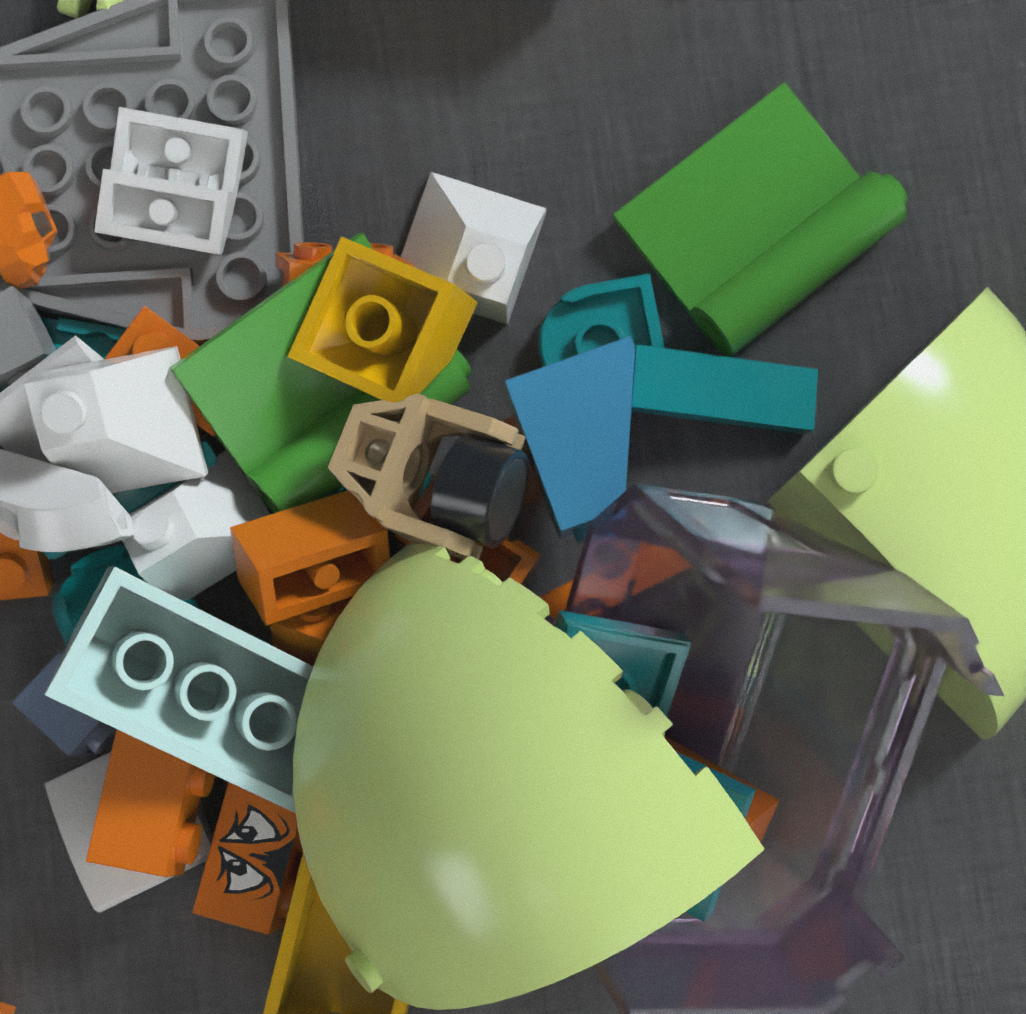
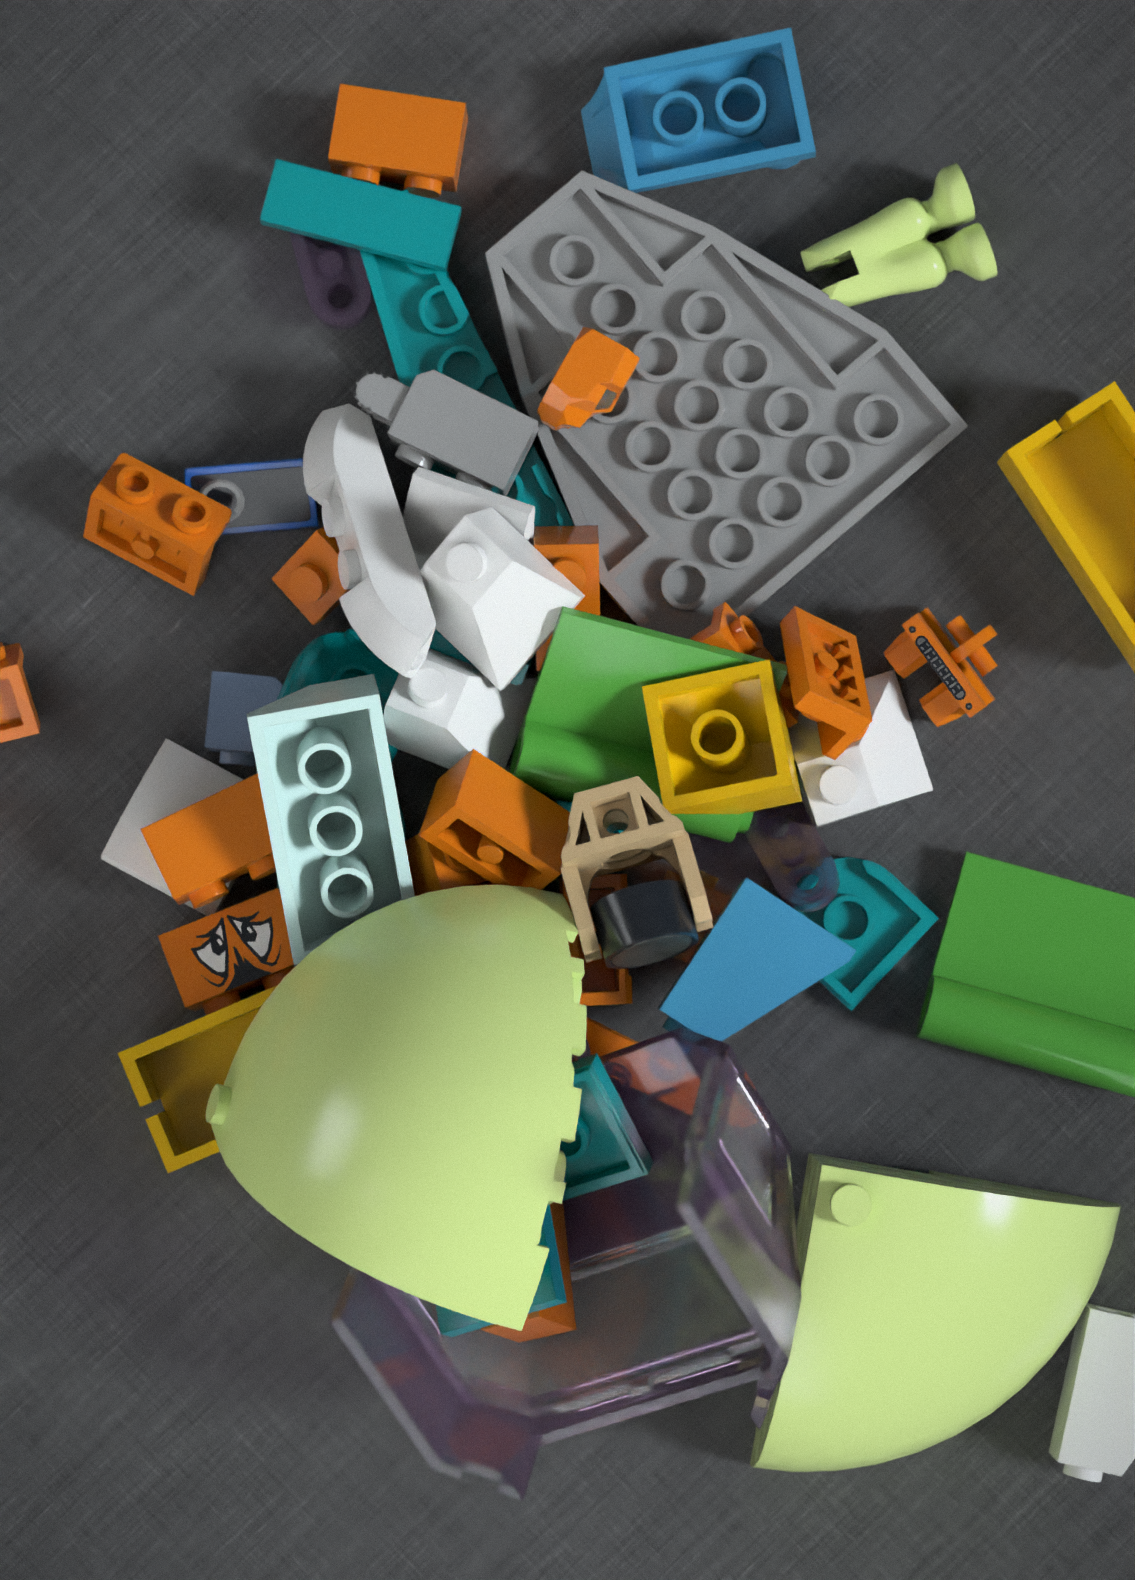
camera: 55 degrees right, 5 degrees up
(171, 181) = (721, 470): white slope -> none
(399, 213) = (826, 679): none -> orange bracket
(427, 128) = (961, 686): none -> orange hips
(517, 342) = (794, 855): none -> plate
(724, 389) = (883, 1051): teal tile -> none

